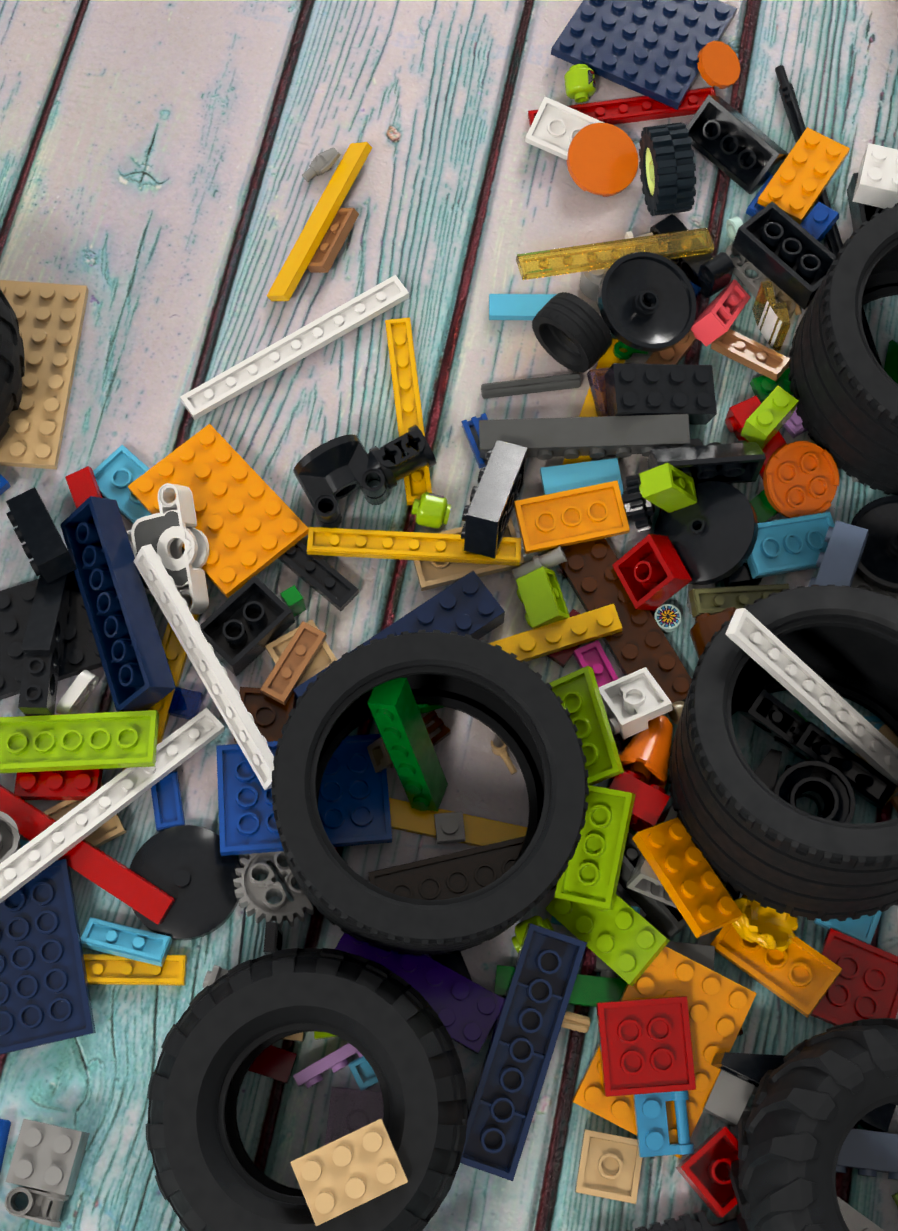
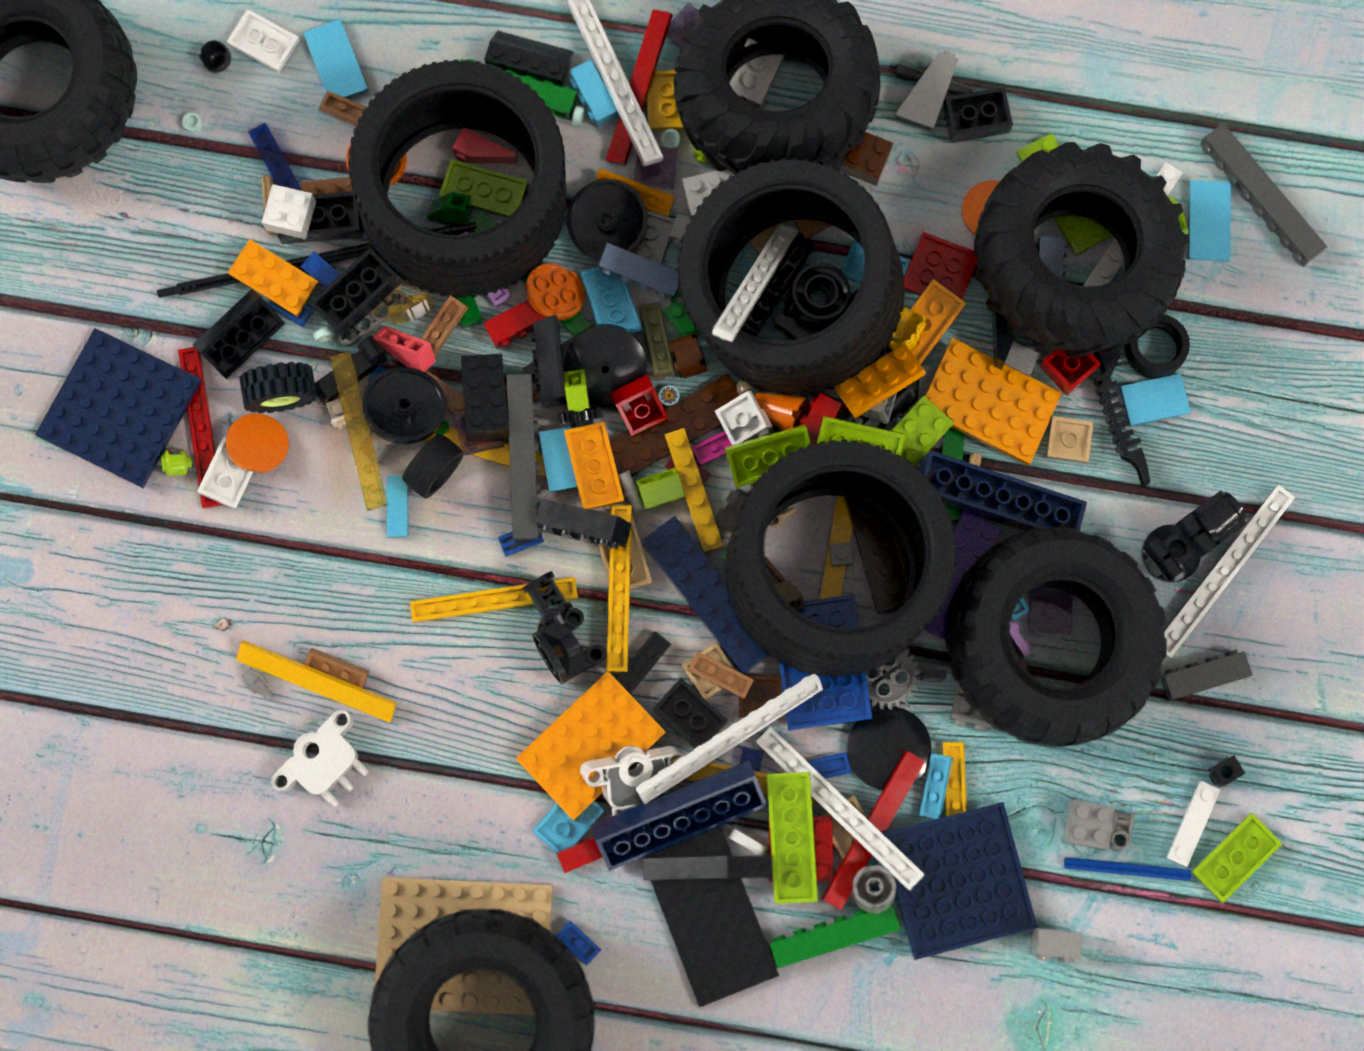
camera: 90 degrees left, 10 degrees up
(40, 535) = (621, 883): black brick -> none
(218, 230) = (329, 767): none -> white piece
(293, 600) = (667, 680): green piece -> none
(294, 347) = (439, 694): white plate -> none
(349, 1172) = (1103, 596): tan plate -> none
(408, 744) = (800, 576): green brick -> none
(431, 510) = (586, 576): lime head -> none
(530, 385) = (471, 501): dark grey axle -> none
(645, 1046) = (994, 412): red plate -> none
(653, 1124) = (1041, 409): dark azure plate -> none
(718, 64) = (158, 344): orange tile -> none
(769, 417) = (508, 312): lime brick -> none

